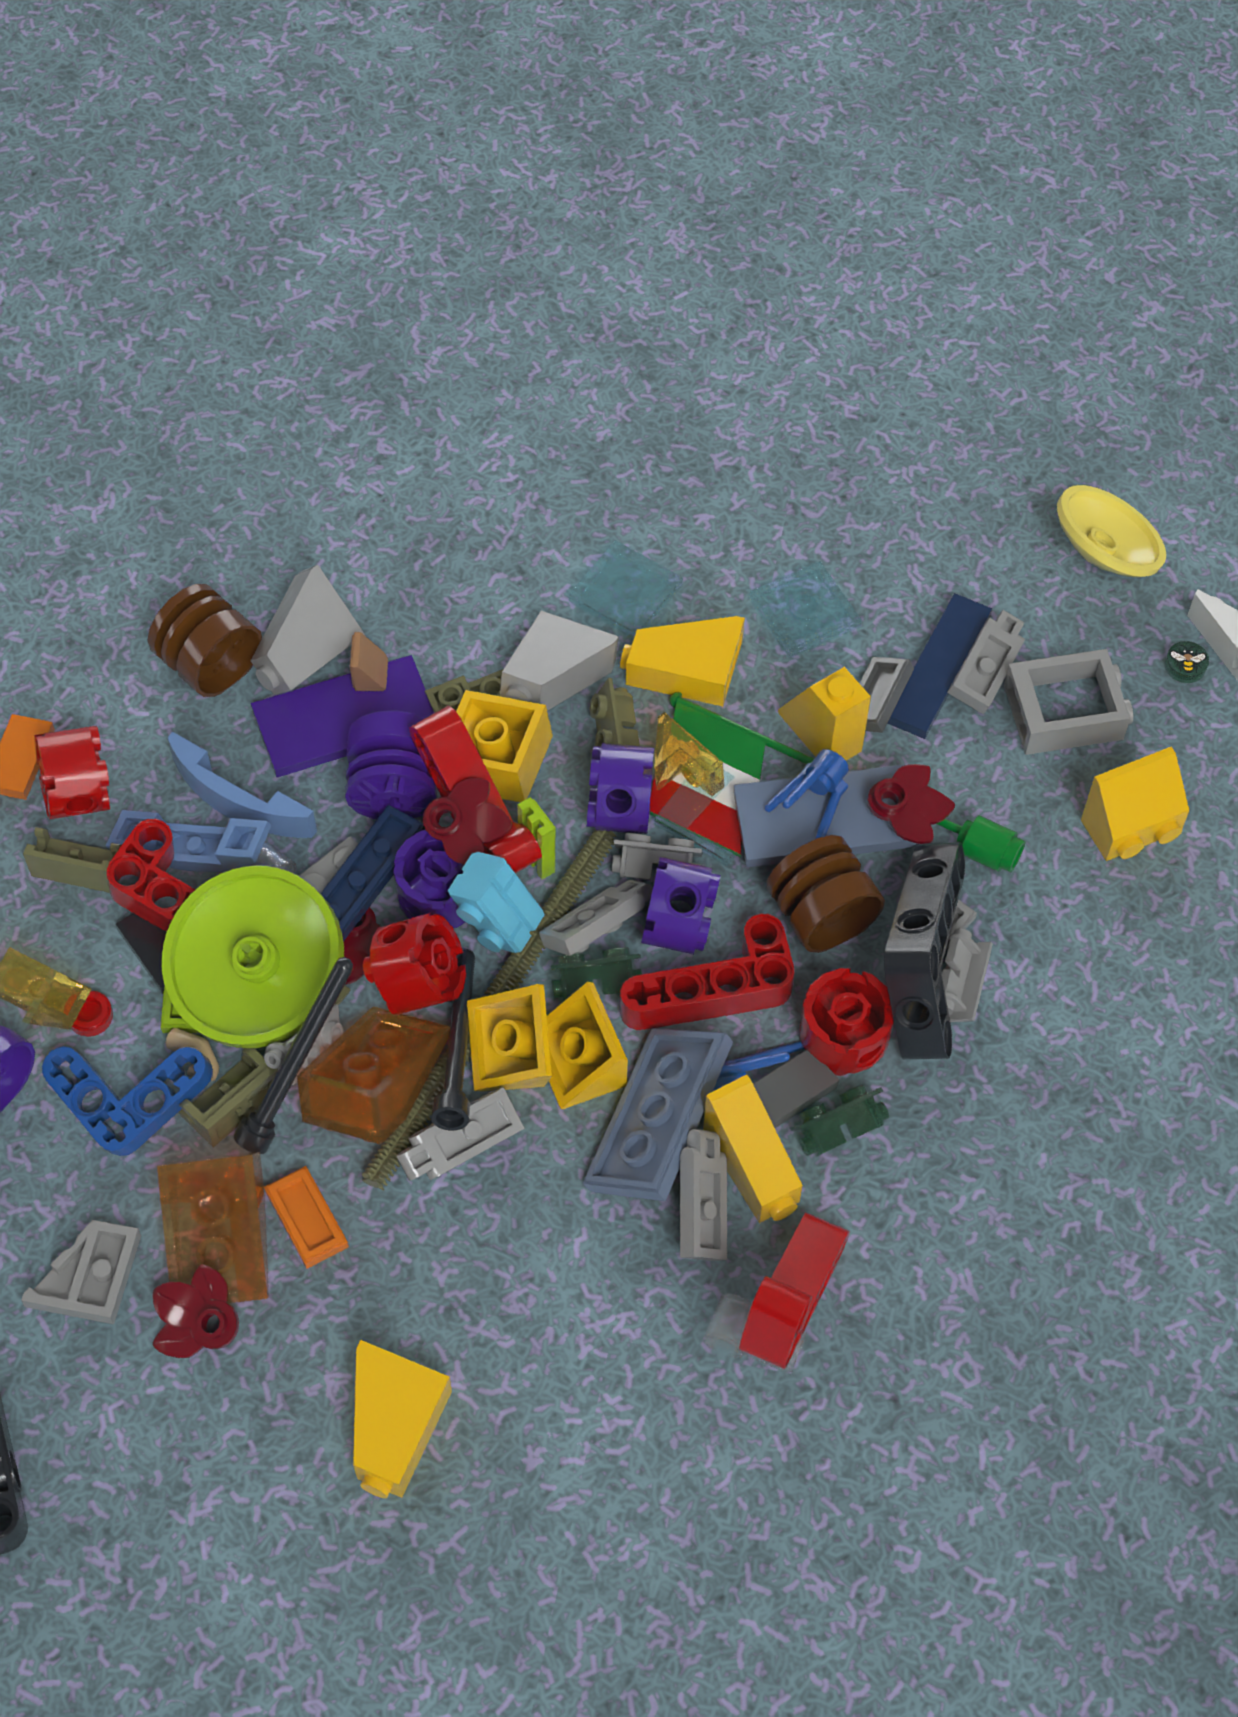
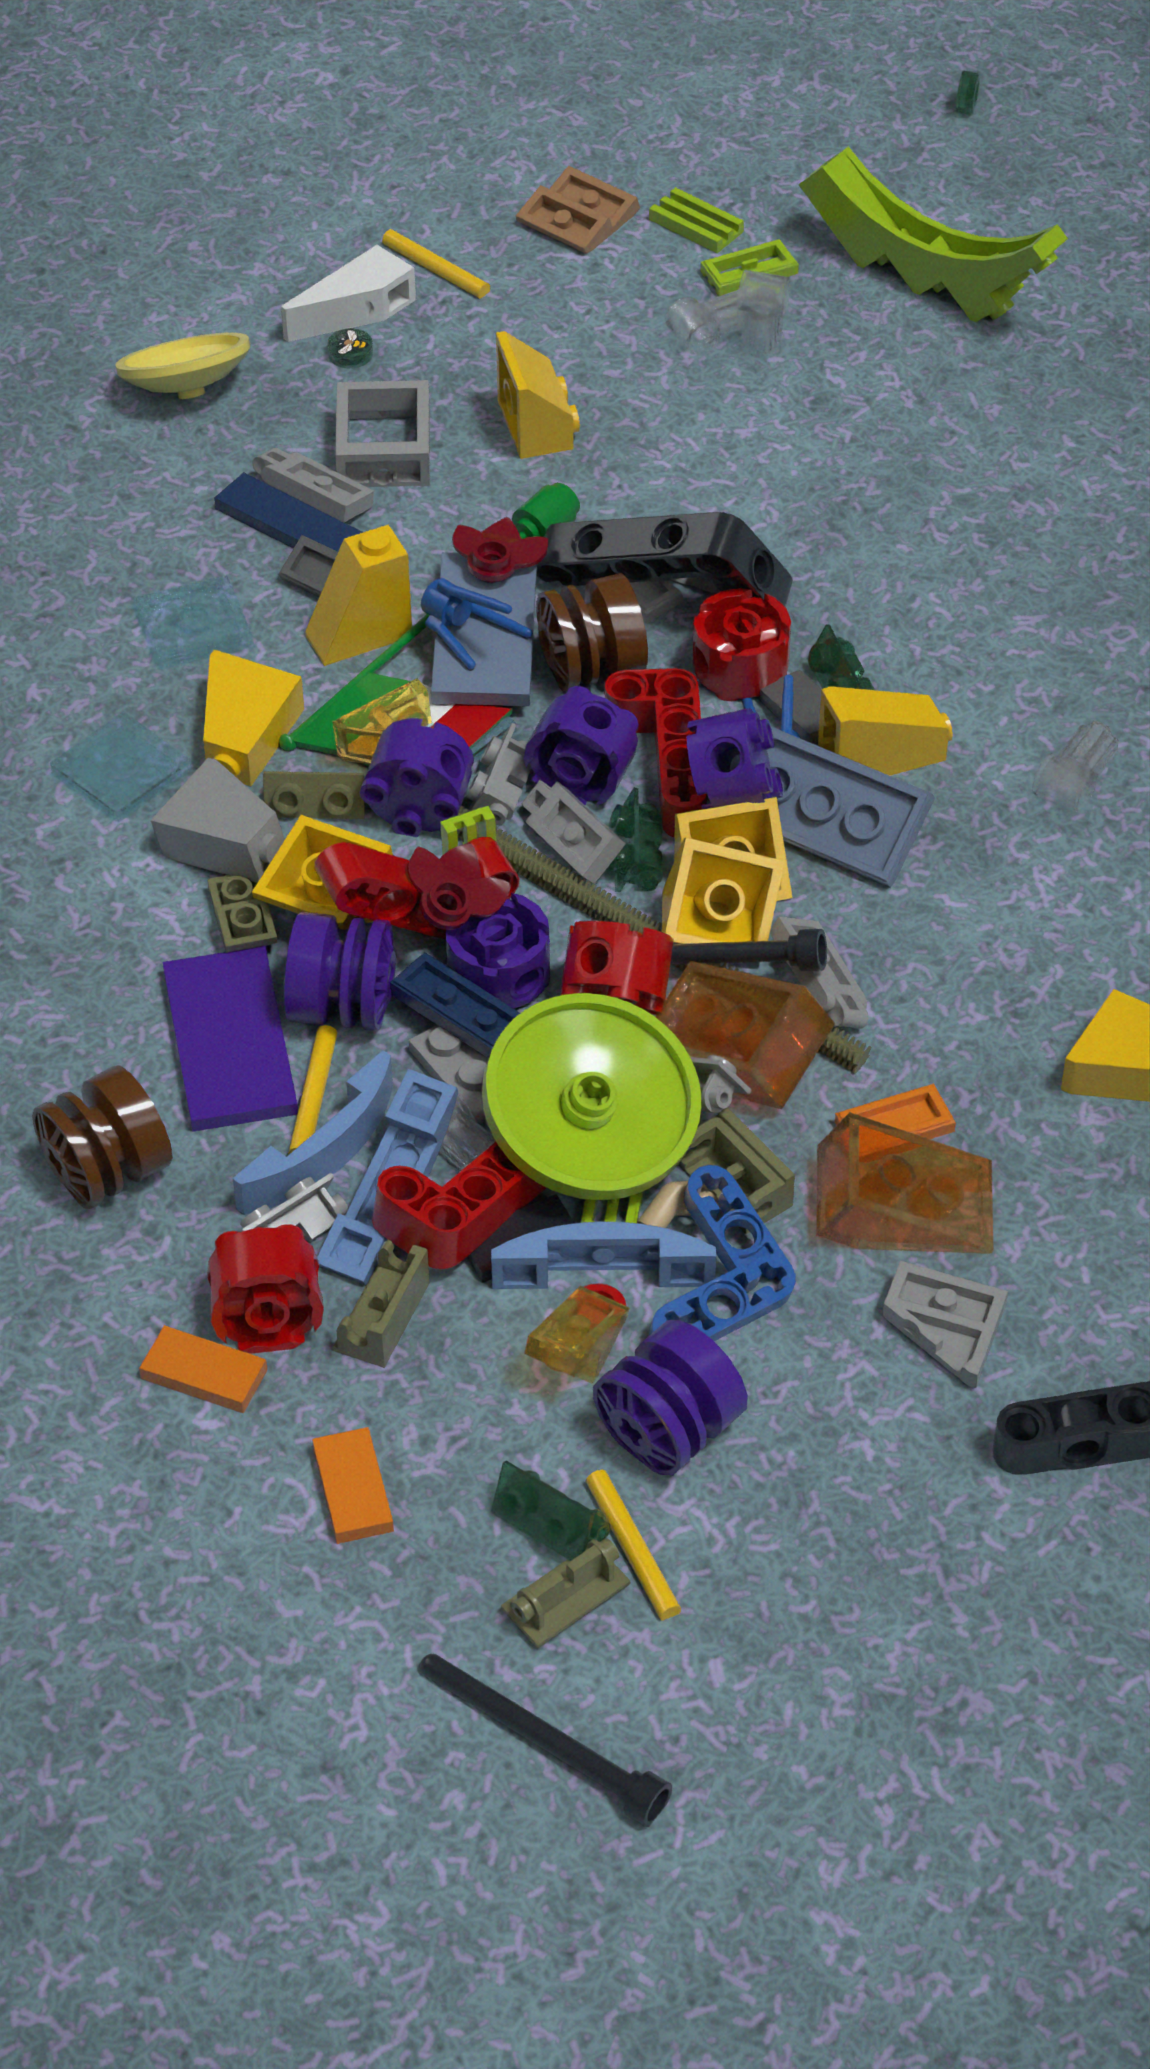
camera: 80 degrees left, 10 degrees down
(133, 1051) = (602, 1246): none -> medium blue slope
(170, 795) = (306, 1206): none -> light grey hinge
(187, 1311) = (1004, 1224): dark red plate -> none
(256, 1131) = (785, 1142): black piece -> none
(290, 782) = (314, 1085): none -> yellow bar
(304, 633) = (115, 1029): light grey slope -> none
(367, 664) = (176, 995): medium nougat slope -> none
(495, 903) = (554, 884): medium azure brick -> none
(654, 1016) = (715, 746): none -> dark purple brick
(703, 1198) = (961, 790): light grey hinge -> none
(792, 1293) = (1080, 716): red beam -> none

